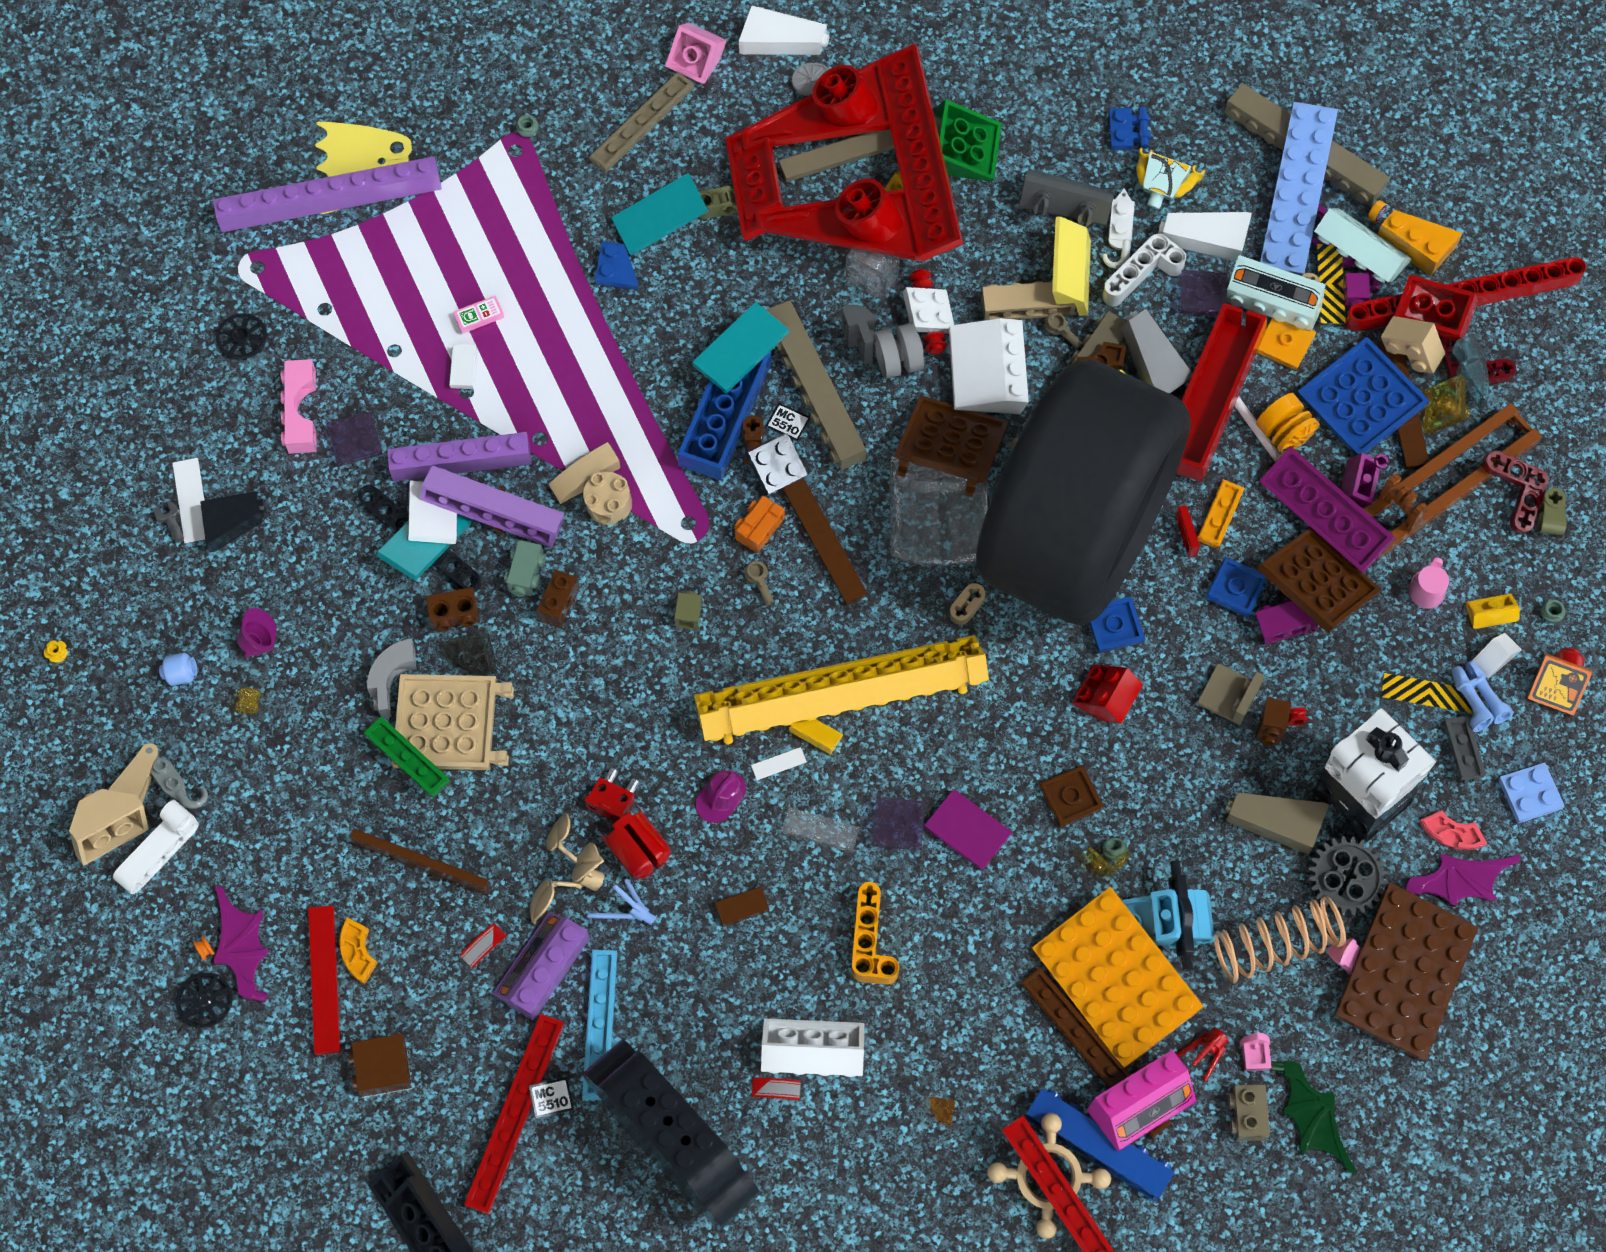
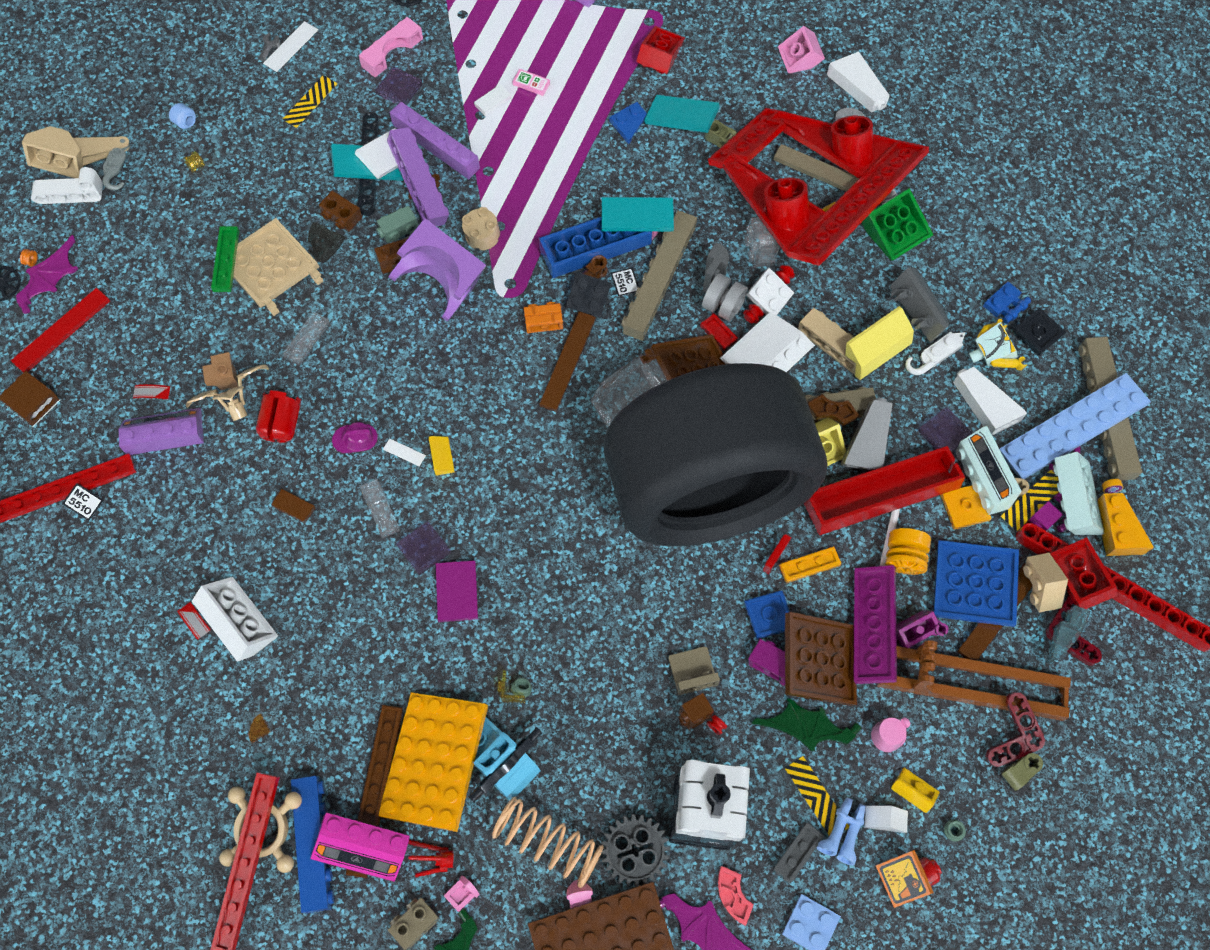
camera: 45 degrees right, 0 degrees up
(60, 655) = (144, 57): yellow plate -> none
(230, 518) = (293, 68): black slope -> none
(256, 632) = (237, 132): magenta piece -> none
(282, 536) = (309, 101): none -> sticker
(354, 950) = (88, 336): light orange tile -> none
(388, 665) = (269, 209): light grey arch -> none
(420, 861) = (171, 319): reddish brown tile -> none
(524, 121) = (668, 13): sand green plate -> none
(533, 858) = (221, 372): none -> medium nougat brick
(564, 169) = (660, 49): none -> red slope
(569, 753) = (306, 338): none -> clear plate
(574, 478) = (499, 206): tan slope -> none
(599, 1011) = (152, 491): medium azure tile -> none
(607, 797) = (296, 381): red piece -> none
(636, 556) = (441, 257): none -> medium lavender piece
(638, 911) = (239, 452): light blue plant -> none
(641, 122) = (731, 62): dark tan tile -> none
(671, 1133) = (91, 580): black brick -> none
(688, 610) = (452, 326): olive brick -> none
(756, 573) = (511, 342): dark tan plate -> none
(841, 688) = (478, 443): yellow brick -> none
(869, 932) = (338, 591): light orange beam -> none
(915, 386) = (720, 332): none -> red tile
(971, 607) = (602, 473): tan beam -> none
(1057, 324) = (836, 369): dark tan plate -> none
(1071, 796) = (534, 633): reddish brown tile -> none
(1108, 692) = (622, 597): red slope -> none
(1117, 626) = (672, 565): blue plate -> none
(1153, 257) = (895, 382): white beam -> none
(1182, 130) = (1039, 331): none -> black plate
(1278, 819) = (637, 776): dark tan slope -> none
(1363, 644) = (808, 726): none -> dark green animal
(1446, 404) = (1025, 638): clear yellow tile -> none

